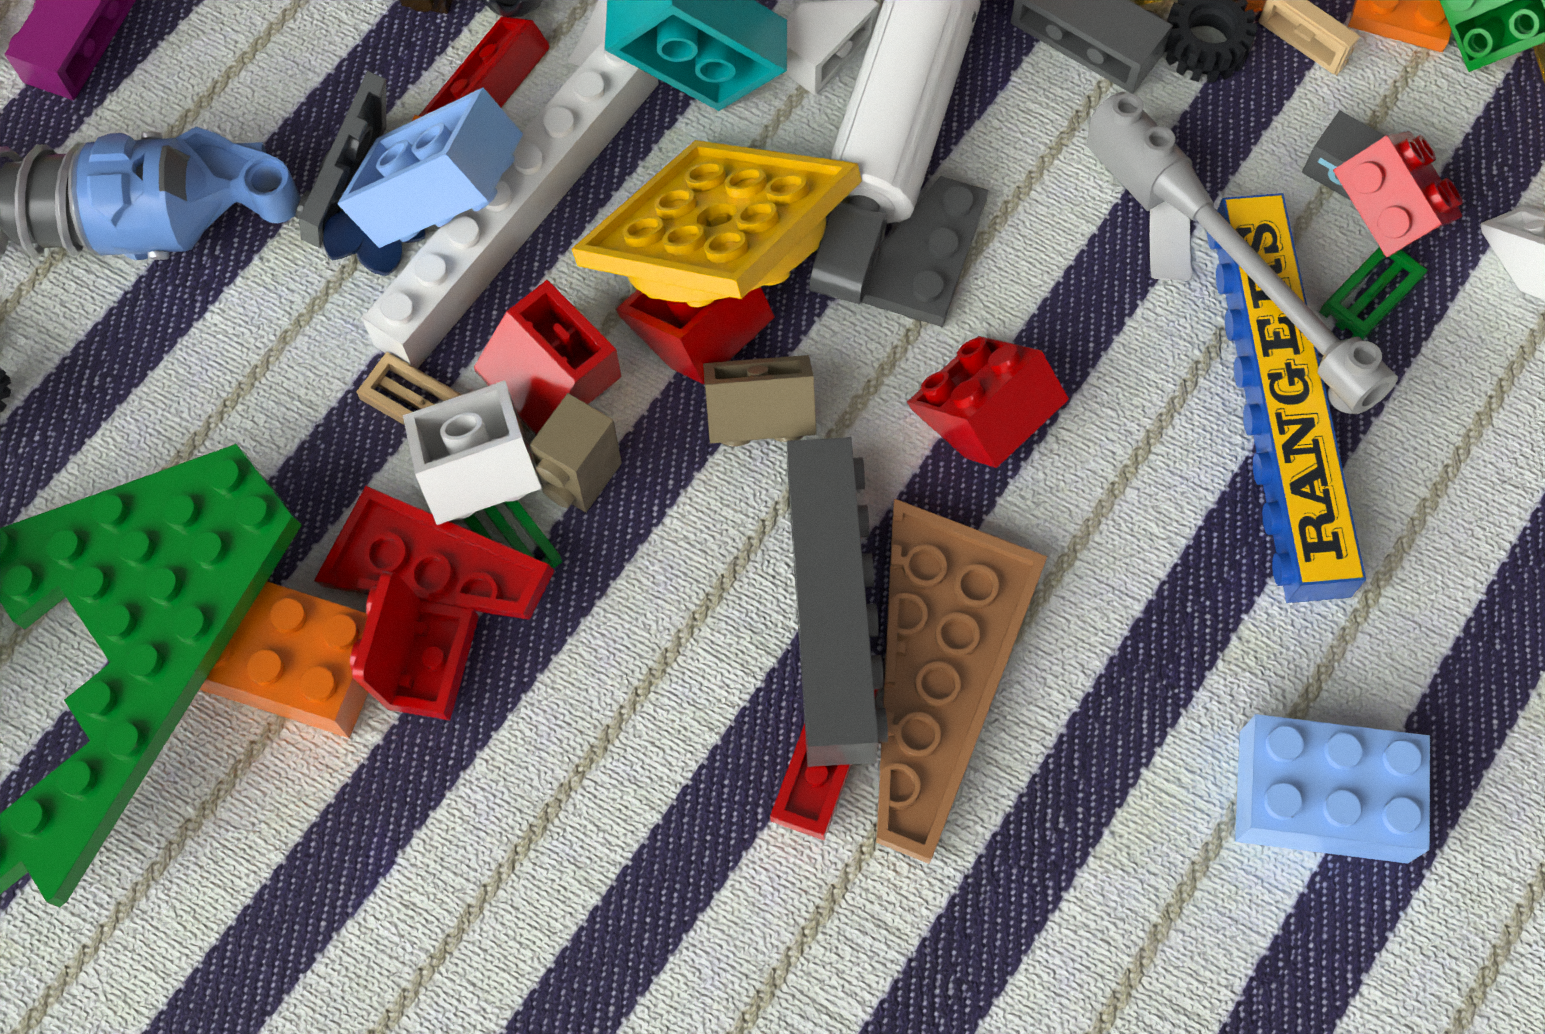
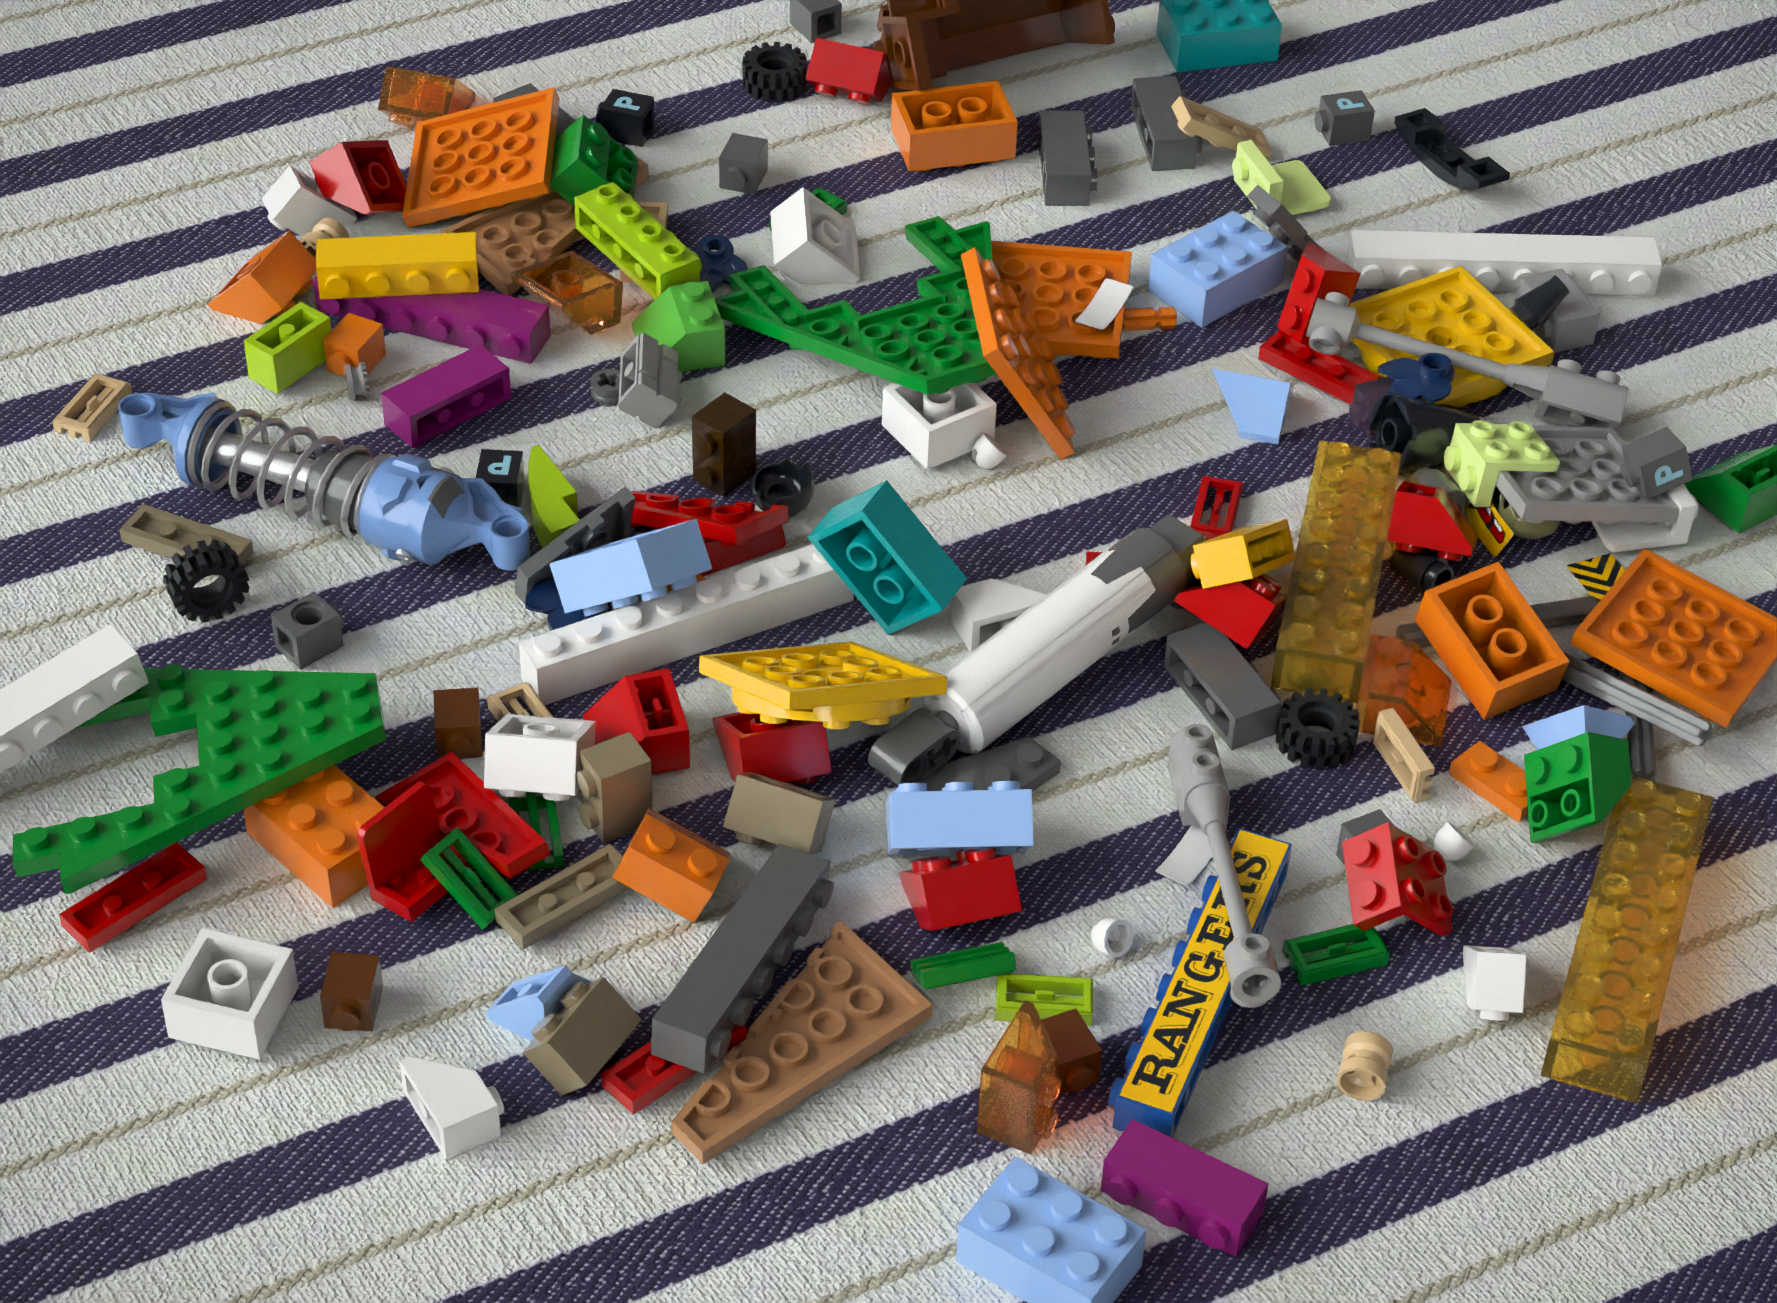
camera: 25 degrees right, 25 degrees down
(113, 419) = (307, 630): none -> dark grey brick
(123, 863) = (132, 897): none -> red plate
(202, 101) = (504, 473): none -> black brick
(279, 112) = (551, 498): none -> lime slope
(318, 927) = (230, 993): none -> white brick
(349, 444) = (458, 722): none -> reddish brown brick
(443, 628) = (463, 882): none -> green tile
(444, 849) = (351, 991): none -> reddish brown brick
(450, 63) = (724, 523): none -> red wing
(595, 606) = (561, 898): none -> dark tan plate
(639, 935) = (452, 1104): none -> white slope
(647, 756) = (532, 1000): none -> light blue slope
(689, 514) = (672, 865): none -> orange slope
(727, 784) = (581, 1035): none -> dark tan brick
(955, 327) = (959, 819): none -> light blue brick
(1043, 490) = (963, 965): none -> green tile
(1099, 504) = (1044, 999): none -> lime tile
(1162, 380) = (1116, 931): none -> white hinge
(1203, 613) = (1020, 1084): none -> clear orange slope
(1207, 547) = (1076, 1051): none -> reddish brown brick
(1409, 111) = (1452, 842): none -> white hinge
(1410, 651) = (1183, 1187): none -> magenta brick
(1487, 416) = (1365, 1066): none -> tan wheel

